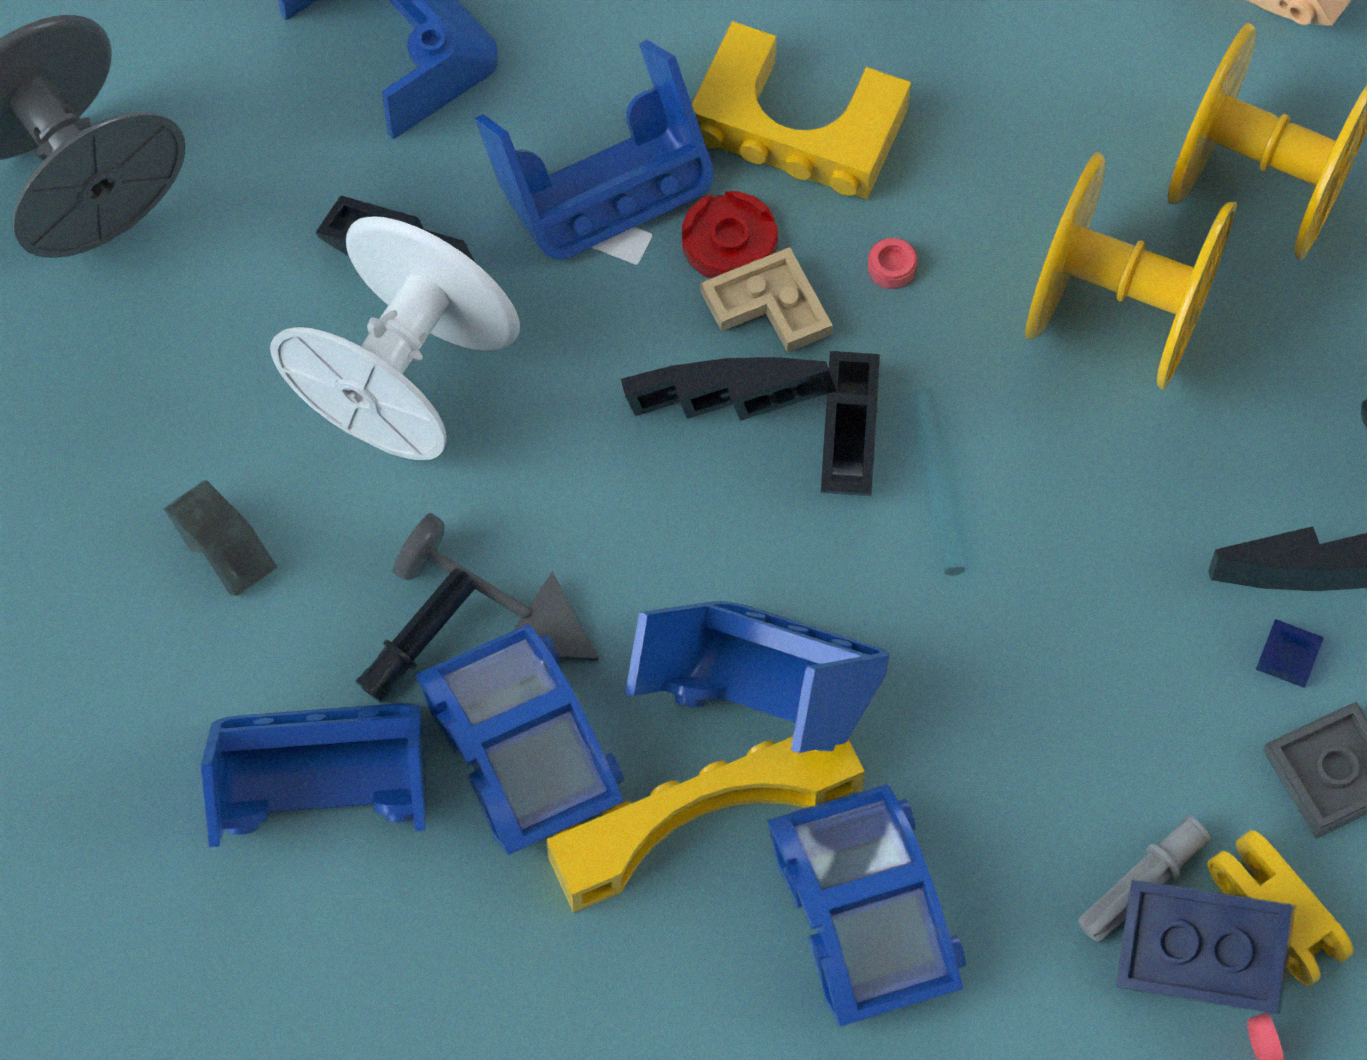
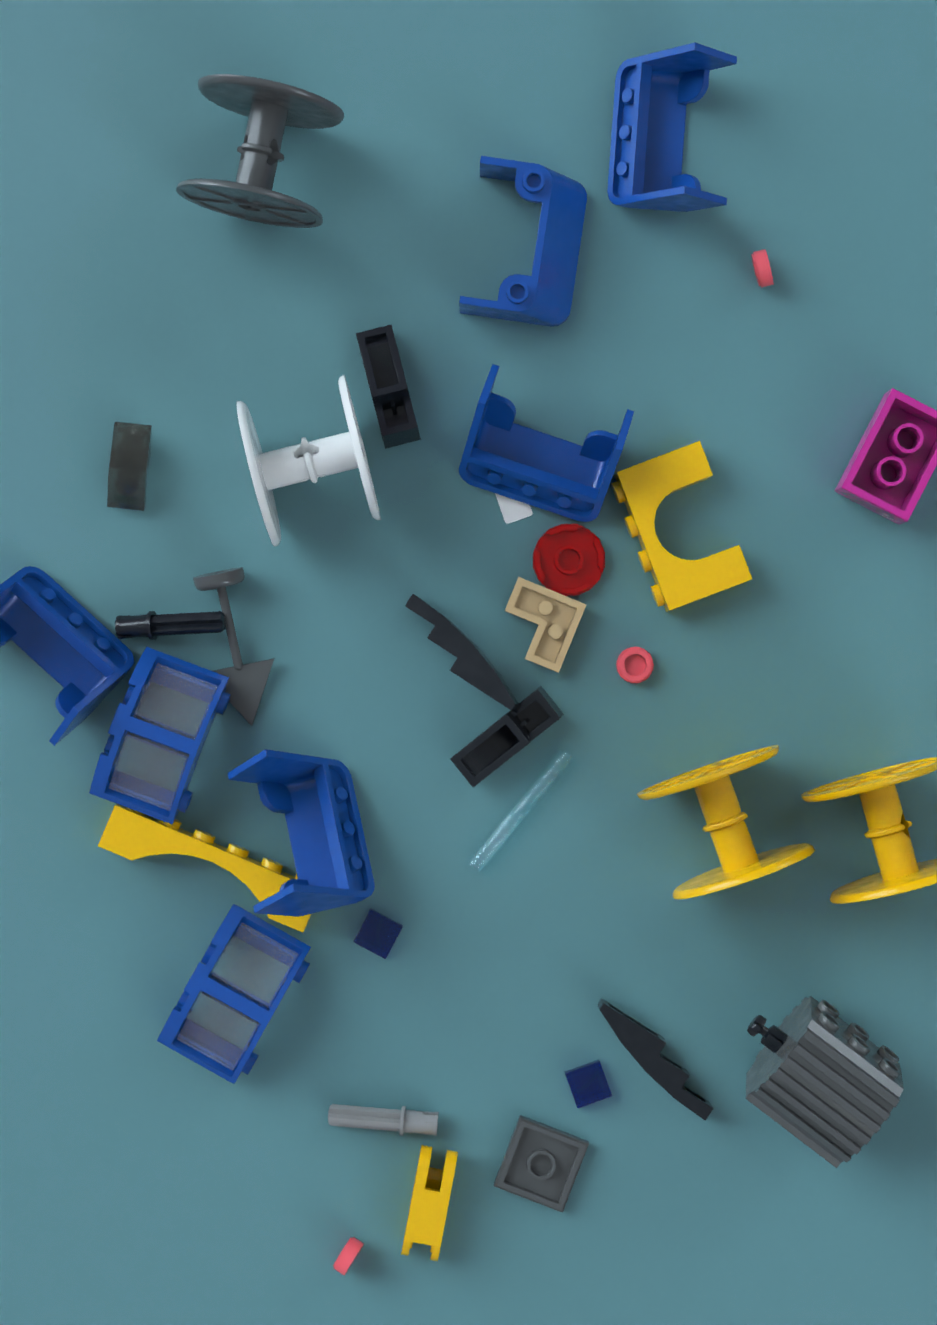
camera: 50 degrees right, 25 degrees up
(936, 720) = (378, 933): none -> clear blue tile
(1206, 946) = (367, 1188): dark blue plate -> none

